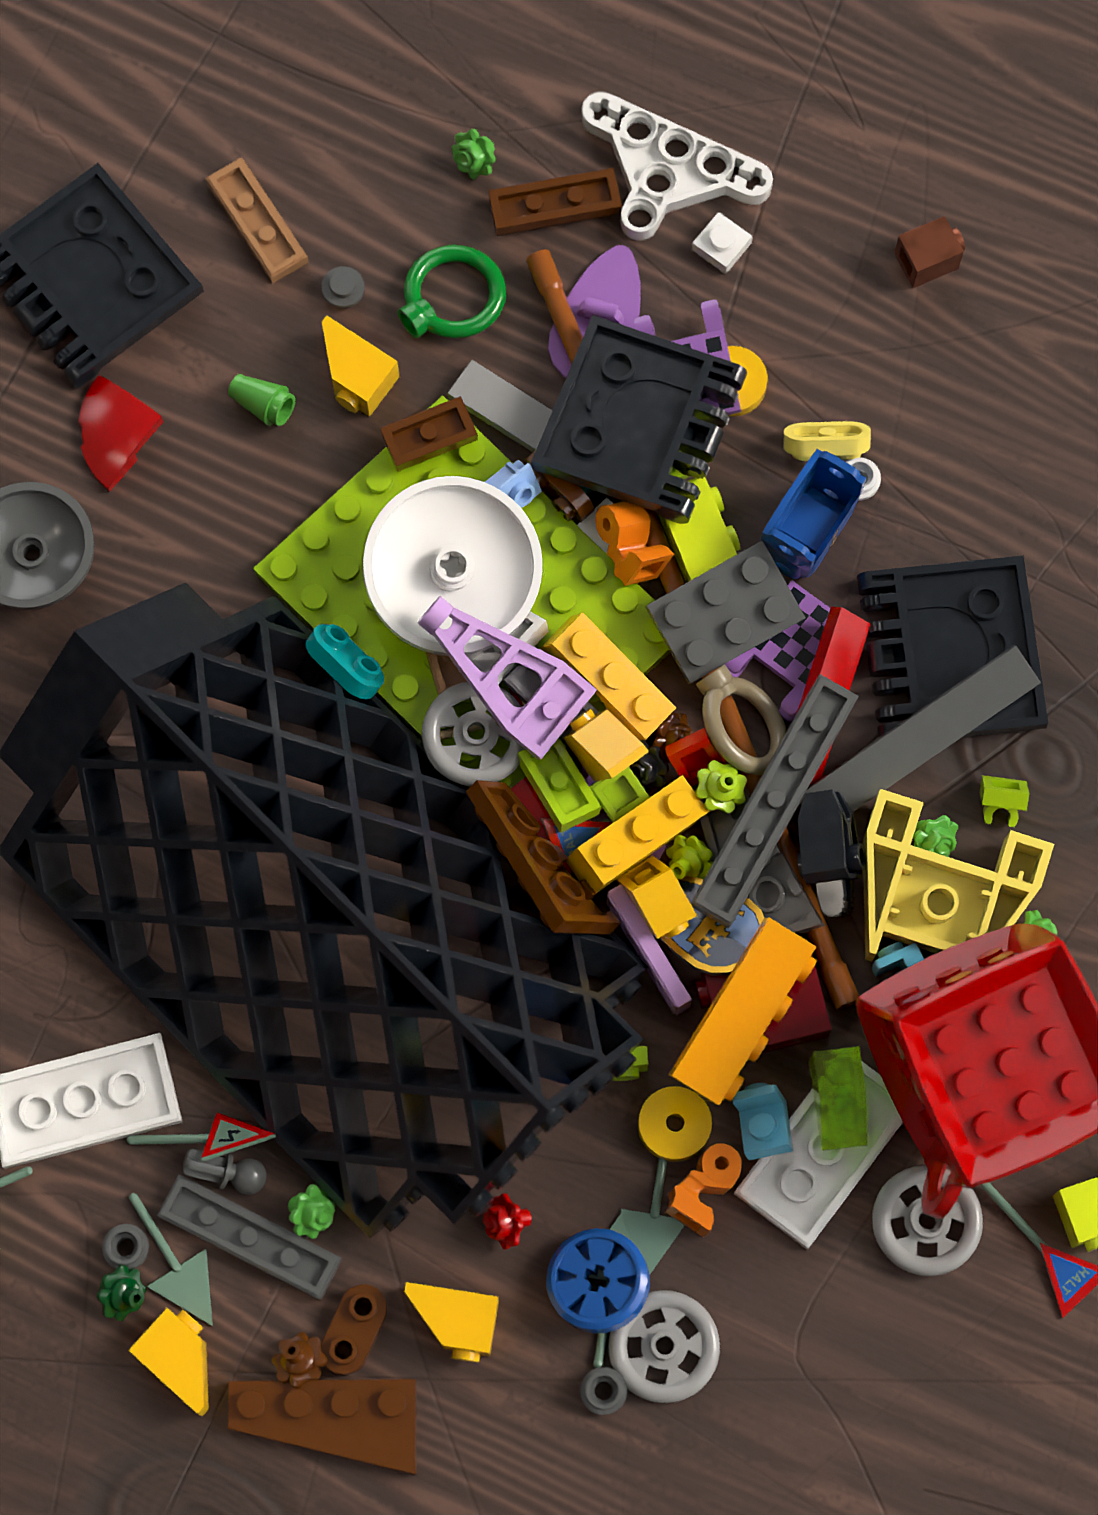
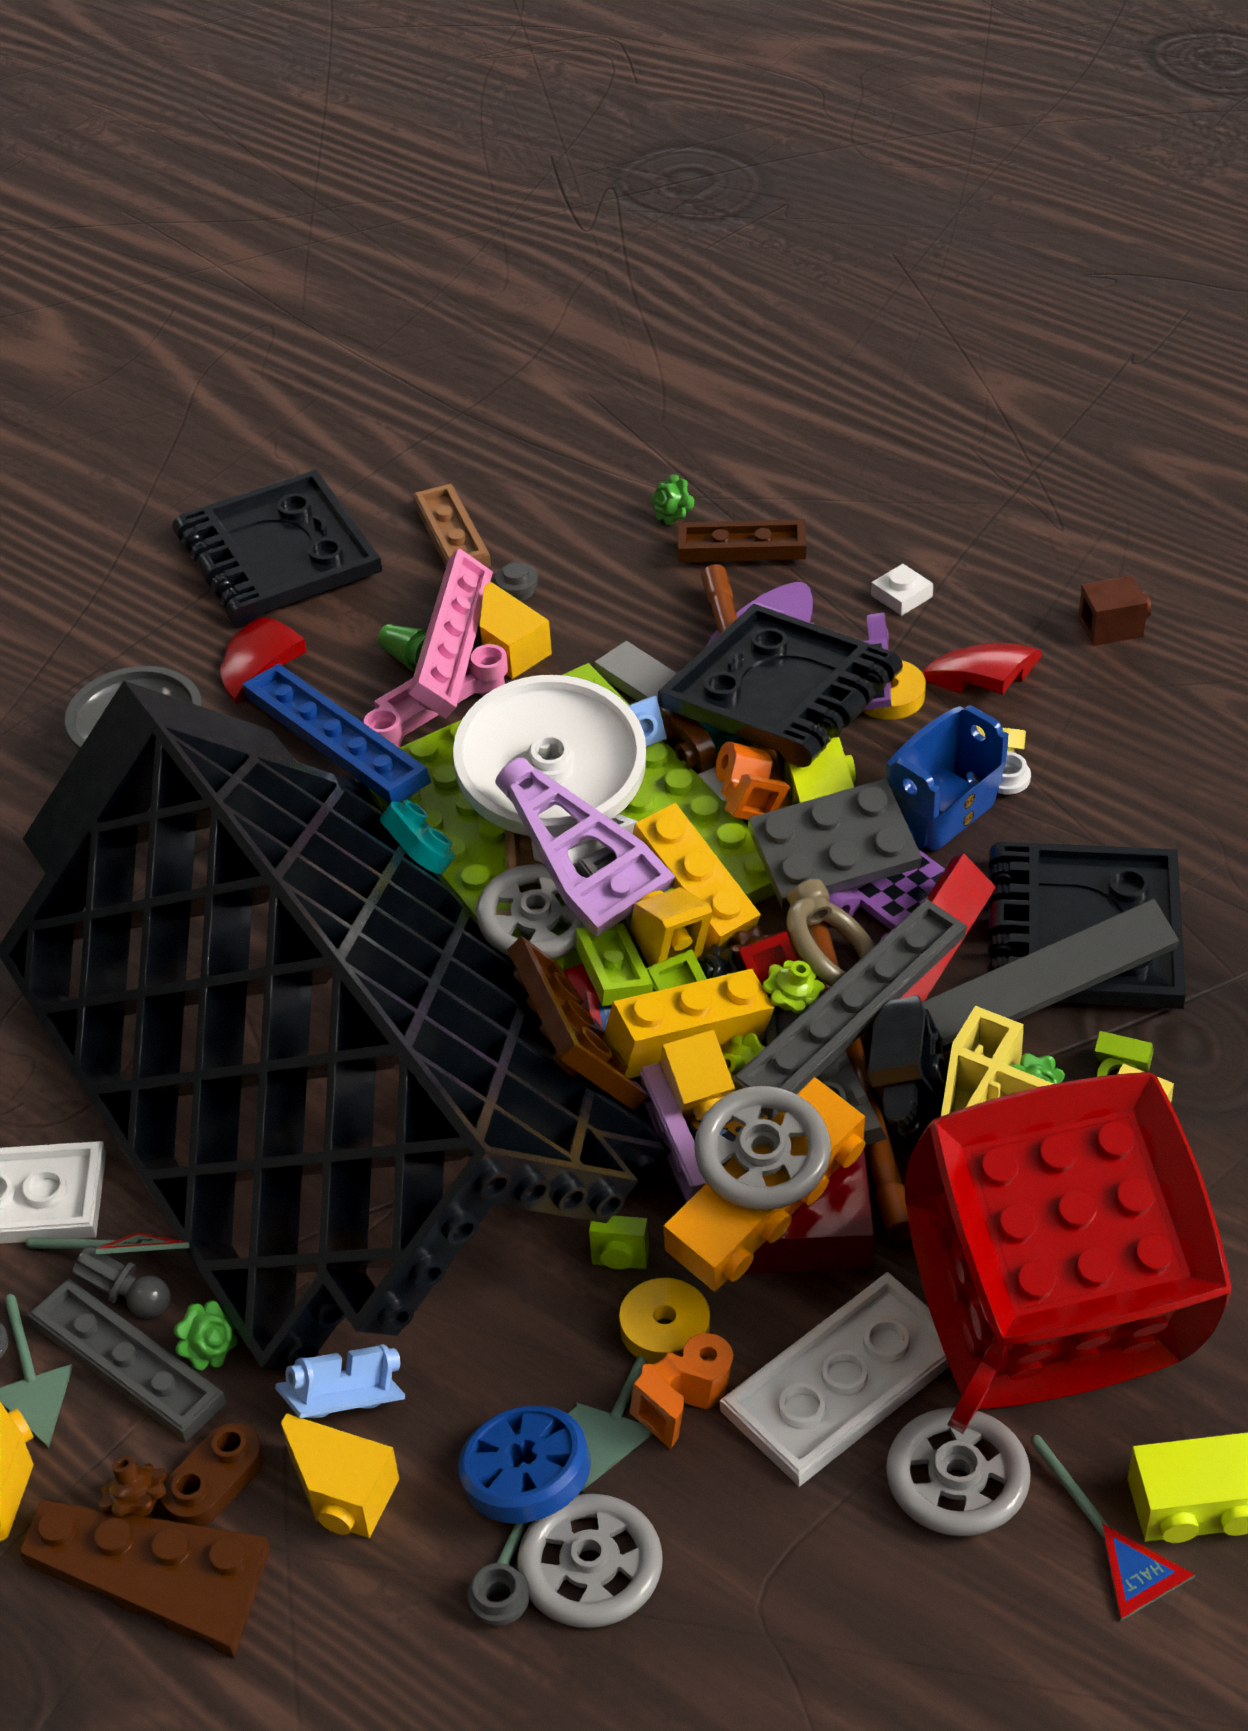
camera: 15 degrees right, 30 degrees down
(228, 538) = (337, 734): none -> blue plate
(299, 463) = (400, 713): none -> bright pink plate
(306, 390) = (450, 635): none -> bright pink plate
(418, 315) = (584, 602): green piece -> none
(429, 433) = (583, 664): reddish brown plate -> none
(435, 1246) = (320, 1387): none -> light blue hinge
(505, 1221) = (430, 1382): red plant -> none
(686, 174) = (876, 541): white beam -> none
(763, 1121) = (772, 1322): medium azure bracket -> none
(777, 1014) = (750, 1189): none -> light grey plate
(816, 338) = (984, 665): none -> red brick
(839, 1098) = (869, 1306): clear neon green slope -> none

